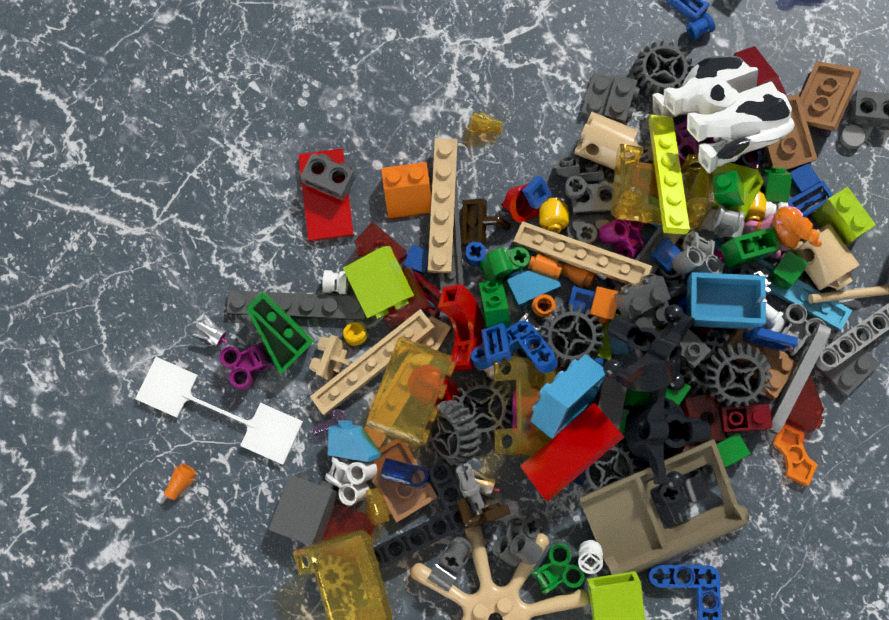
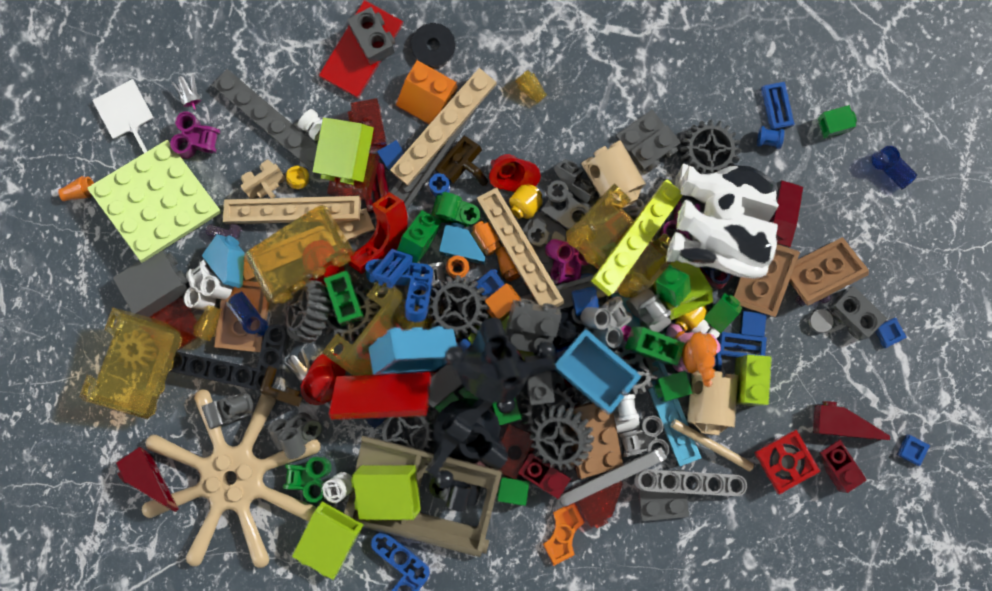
camera: 30 degrees right, 5 degrees up
(253, 440) = (154, 201): none -> yellowish green plate
(279, 332) = (237, 129): green wedge -> none
(378, 137) = (429, 33): none -> black tile
(470, 487) = (288, 363): light grey pin -> none
(476, 397) = (344, 298): none -> green brick
(506, 480) = (320, 380): none -> red piece
(537, 192) = (525, 172): blue tile -> none
(634, 529) = (386, 492): none -> lime brick
(770, 339) = (611, 429): blue tile -> none

